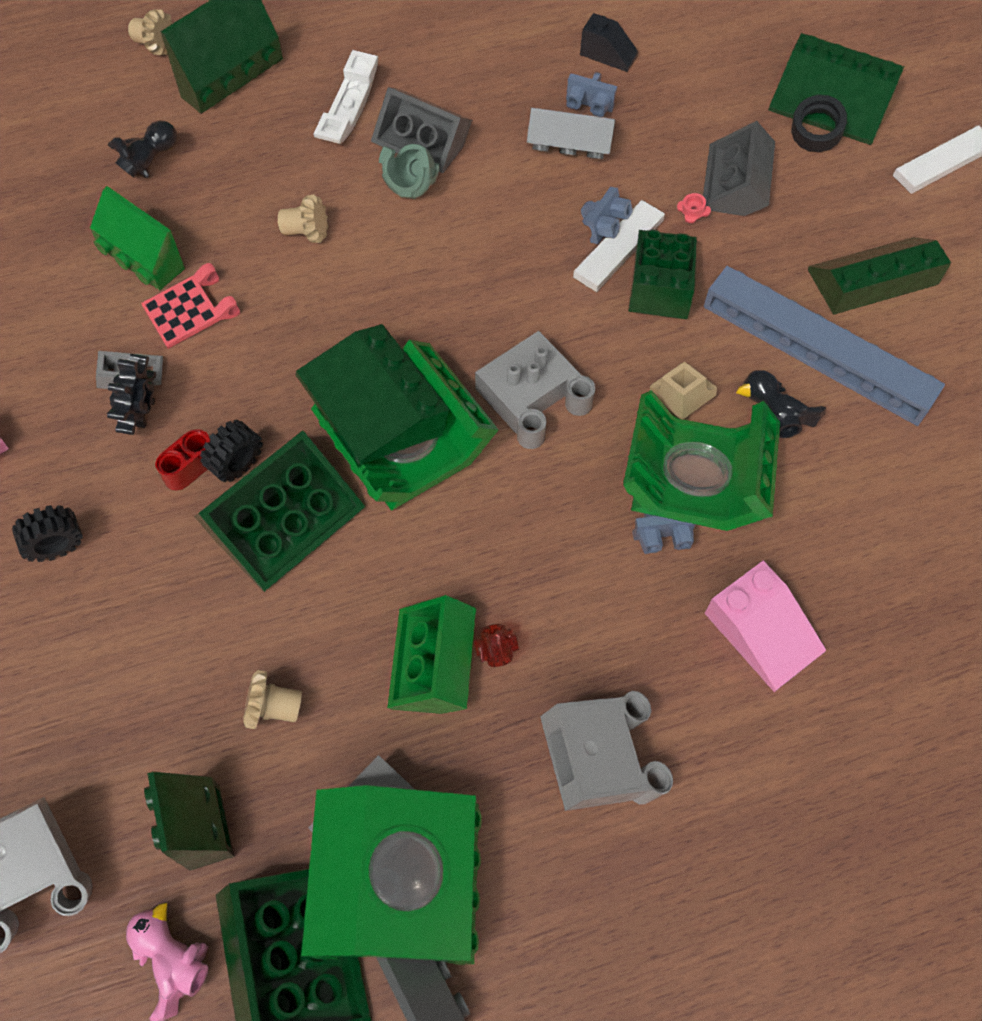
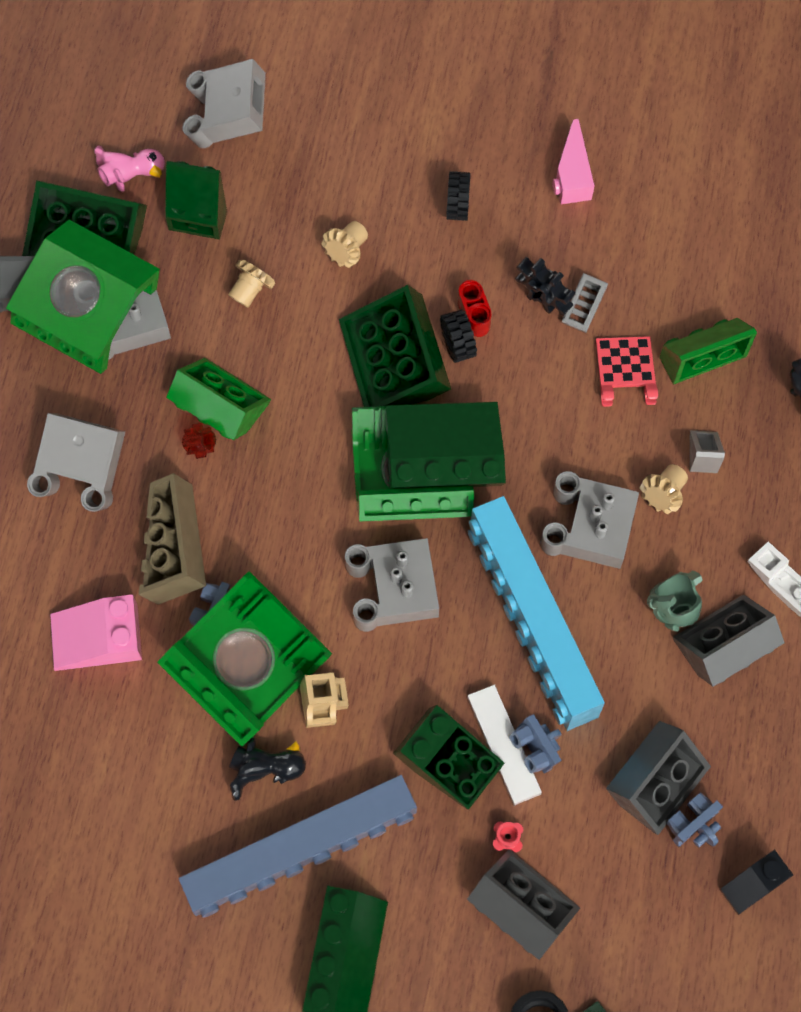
camera: 120 degrees right, 5 degrees up
(167, 624) = (345, 243): none -> tan gear
(246, 208) = (705, 451): none -> light grey slope
(368, 258) = (599, 524): none -> light grey piece
(492, 257) = (535, 614): none -> medium azure brick
(631, 597) = (172, 541): none -> dark tan wedge

